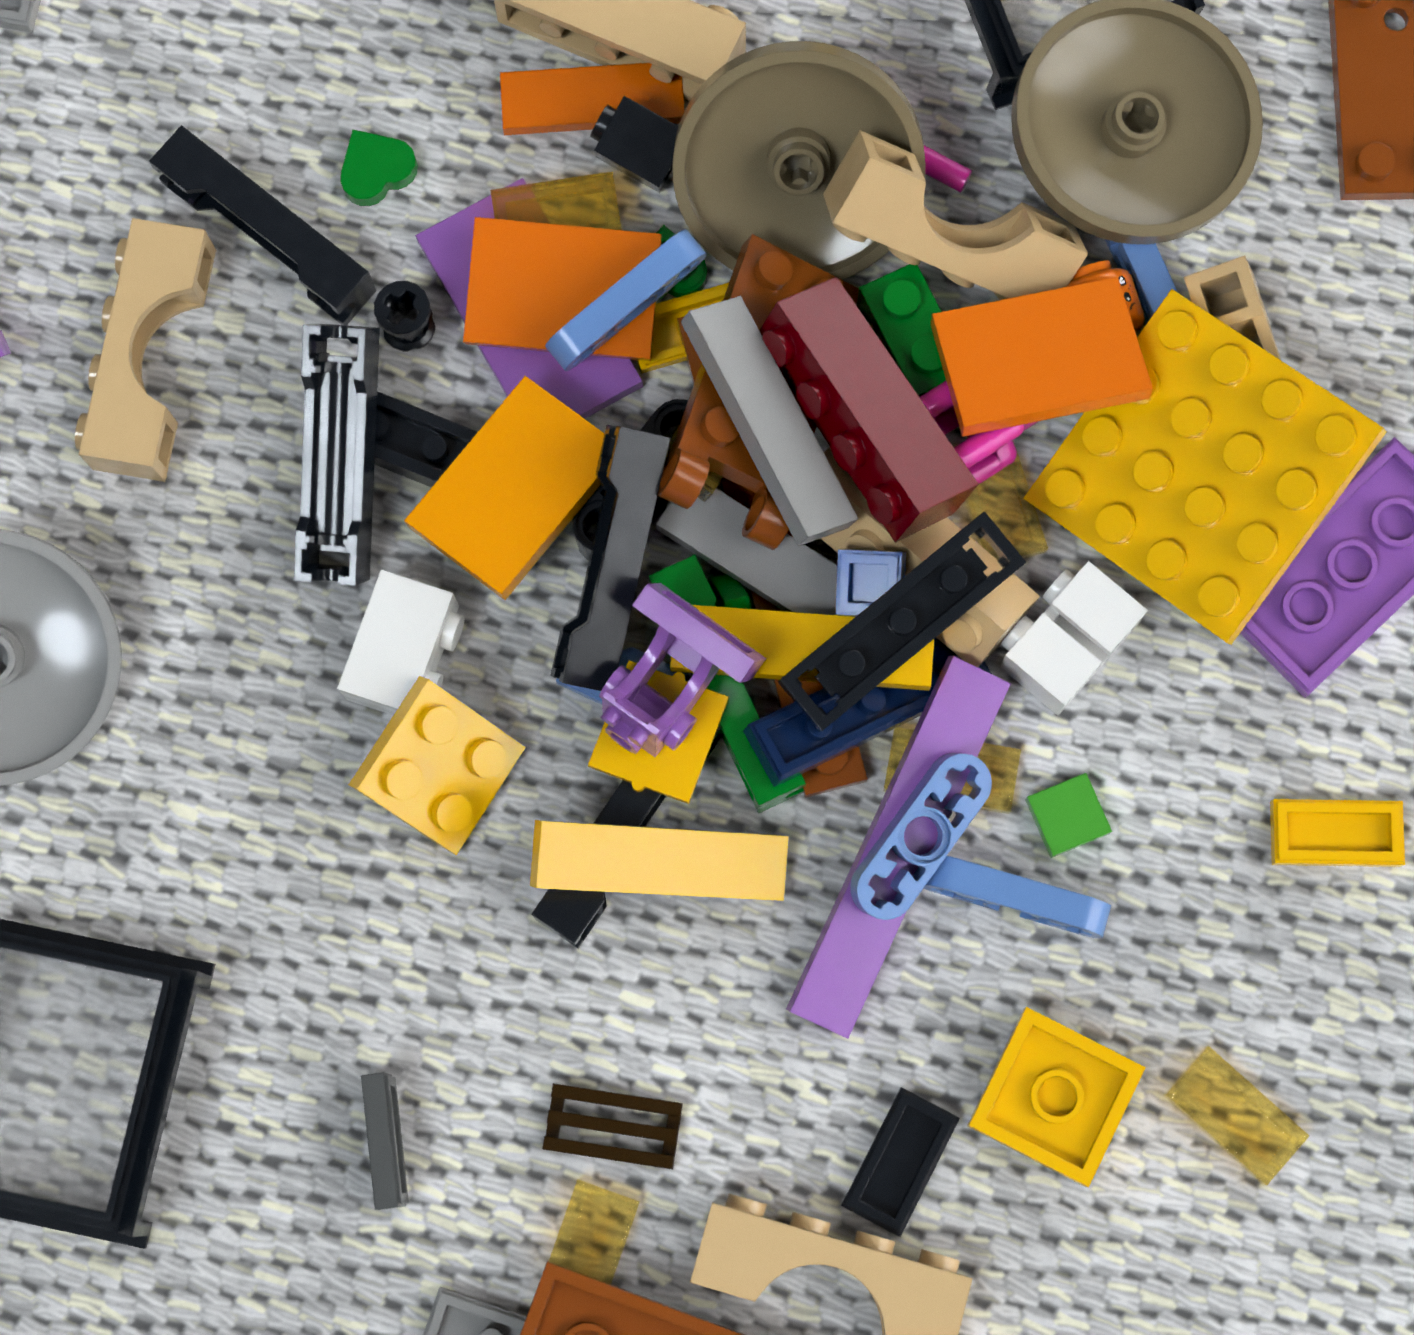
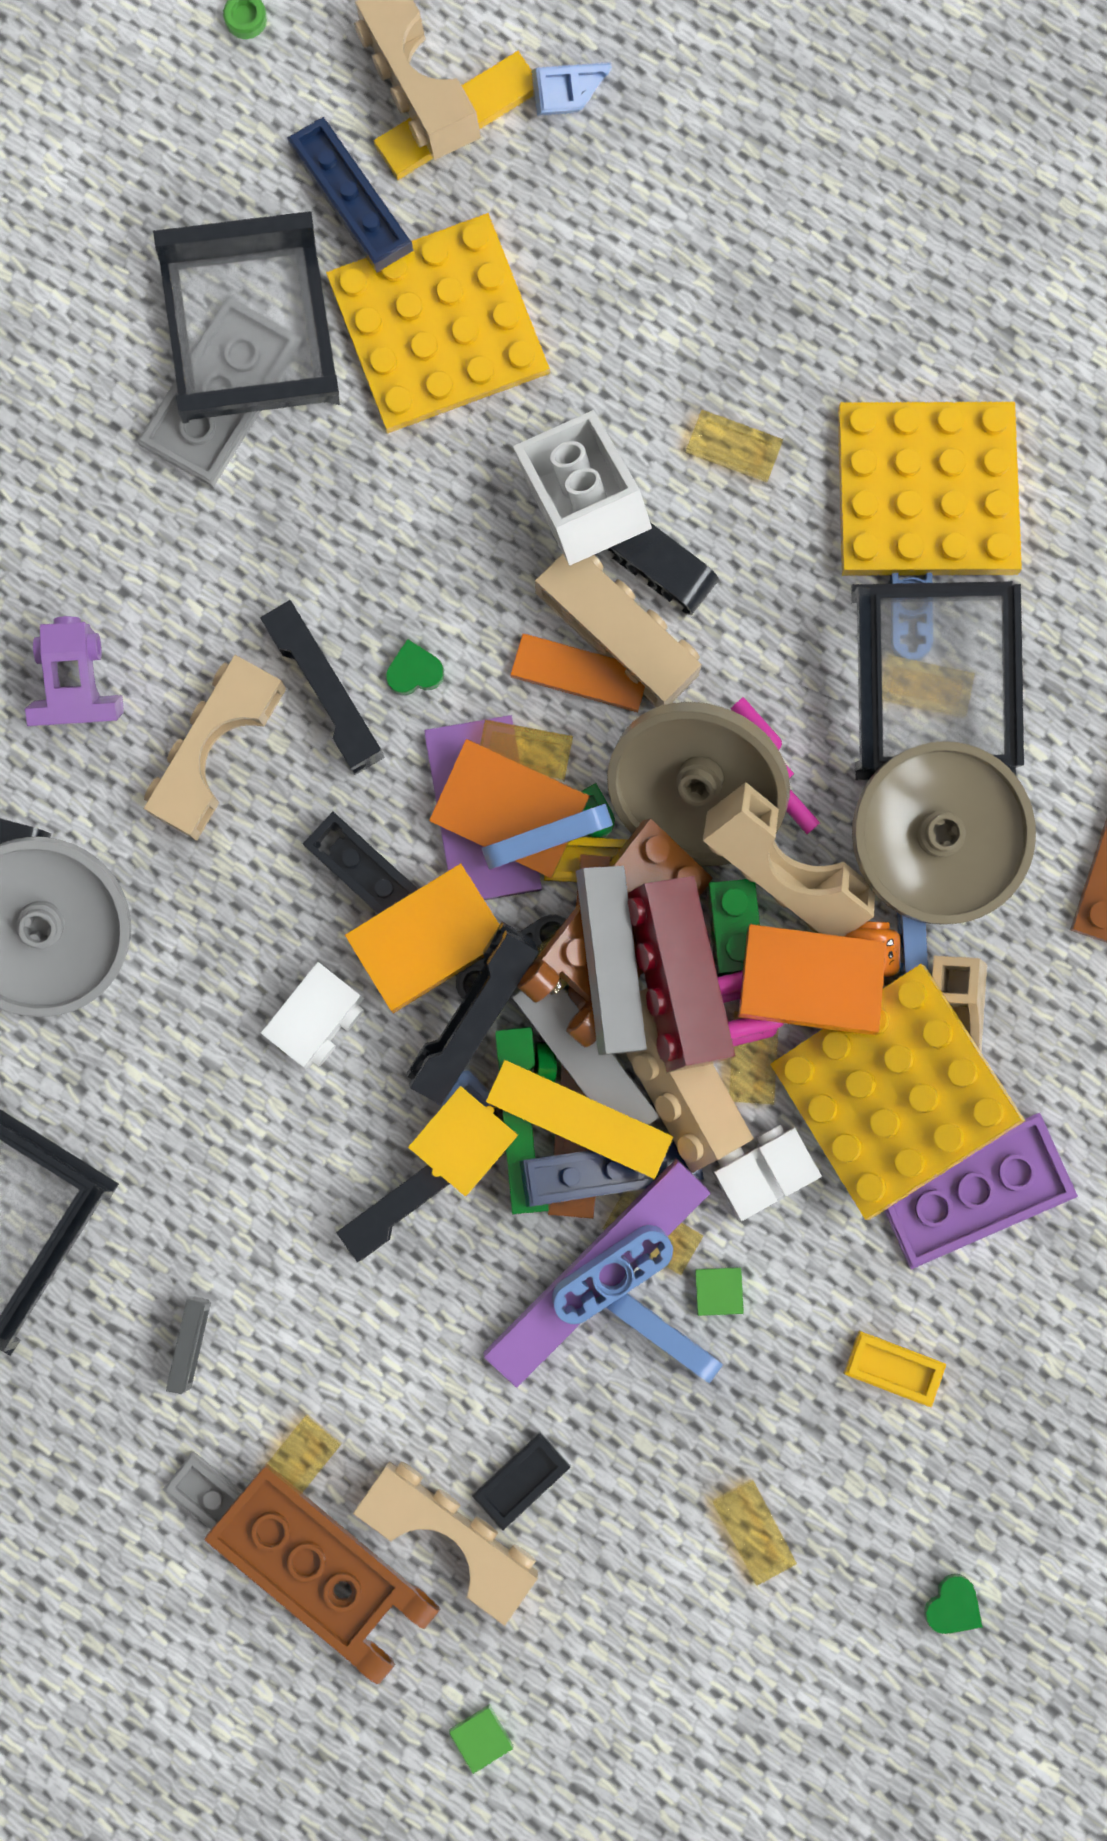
camera: 20 degrees right, 5 degrees up
(337, 454) = (316, 871): black piece -> none
(404, 297) = (400, 773): black bush -> none
(437, 765) = (309, 1107): yellow plate -> none
(557, 1117) = (374, 1406): dark brown tile -> none
(636, 142) = (597, 721): black brick -> none
(640, 714) = (455, 1129): medium lavender tile -> none
(658, 860) = (432, 1227): yellow tile -> none
(865, 577) = (640, 1093): tile -> none
(902, 621) = (648, 1132): black piece -> none
(1056, 1097) = (639, 1477): yellow plate -> none

